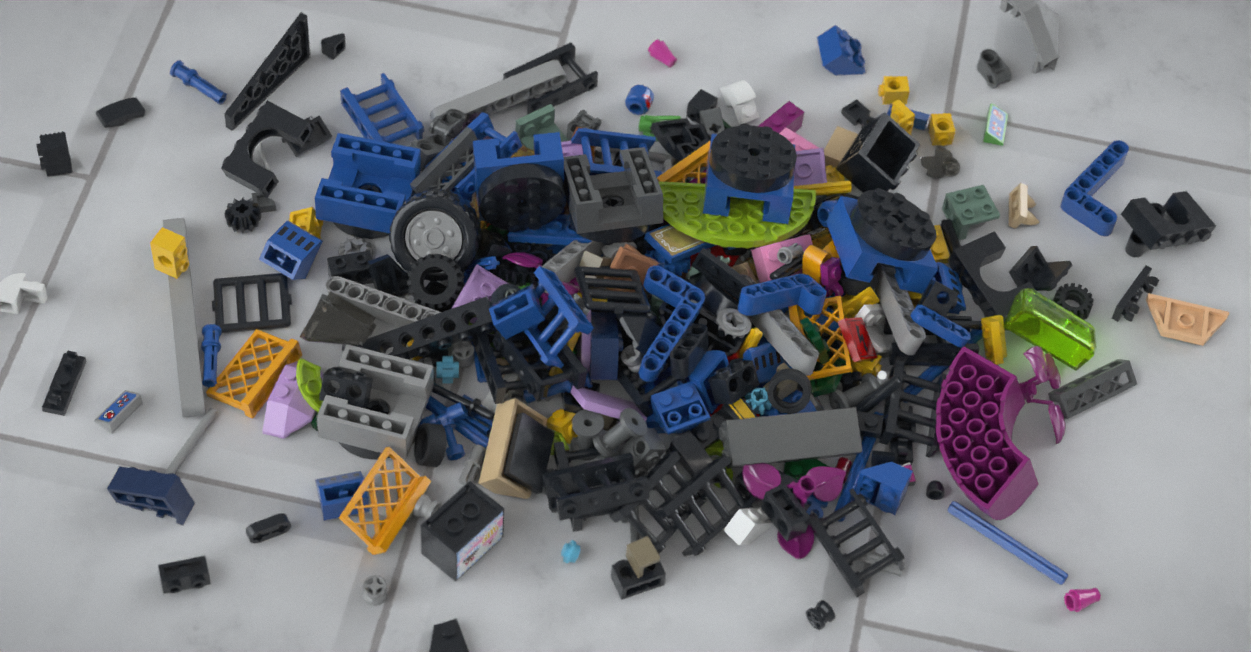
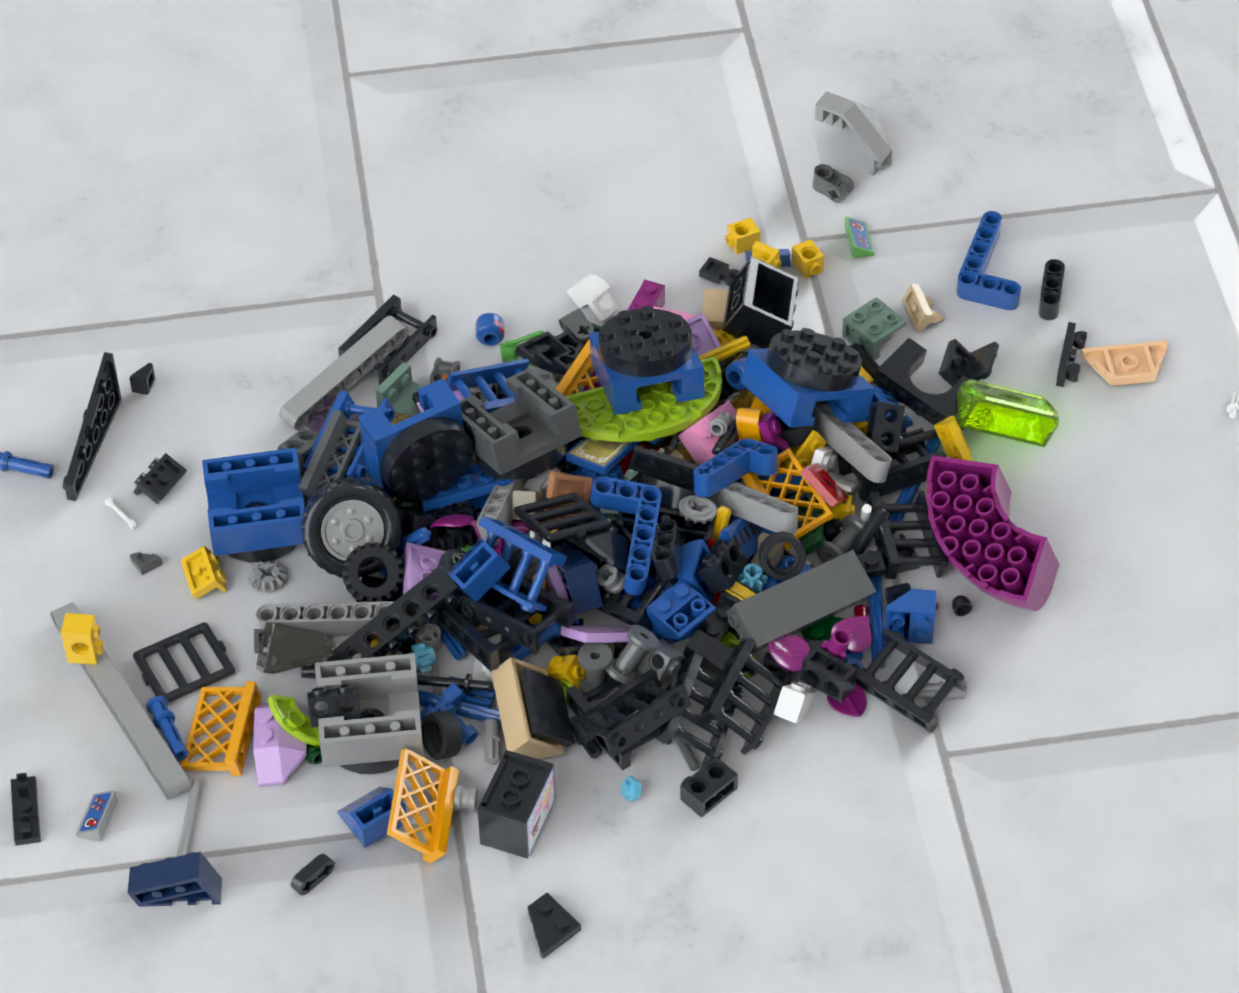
camera: 15 degrees left, 5 degrees down
(184, 574) = (248, 949): black bracket -> none
(242, 215) = (132, 579): black gear -> none
(269, 122) = (119, 475): black arch -> none
(291, 251) = (204, 595): blue slope -> none
(351, 267) = (276, 589): black brick -> none
(370, 129) = (215, 447): blue fence -> none
(375, 584) = (452, 888): light grey wheel -> none
(388, 276) = (319, 586): black wing -> none
(448, 124) = (307, 416): dark grey piece -> none
(641, 554) = (707, 763): dark tan panel -> none
(662, 53) = (490, 276): dark pink cone -> none
(700, 102) = (553, 312): black brick -> none
(813, 336) = (785, 494): dark green wing -> none
(820, 614) = (906, 759): black wheel -> none
(841, 52) = (672, 216): blue slope -> none
(903, 451) = (913, 577): black tile -> none
(940, 326) = (900, 444): blue beam -> none
(941, 164) = (822, 292): clear smoke plate -> none
(1008, 542) = (1053, 630): axle -> none
(1045, 370) = (1022, 455): magenta plant -> none
(1077, 294) = (1016, 374): black tyre -> none
(1081, 598) = (1145, 658): dark pink cone -> none
(1089, 381) = (1063, 451): dark grey fence -> none
(1158, 233) = (1087, 272): black arch -> none

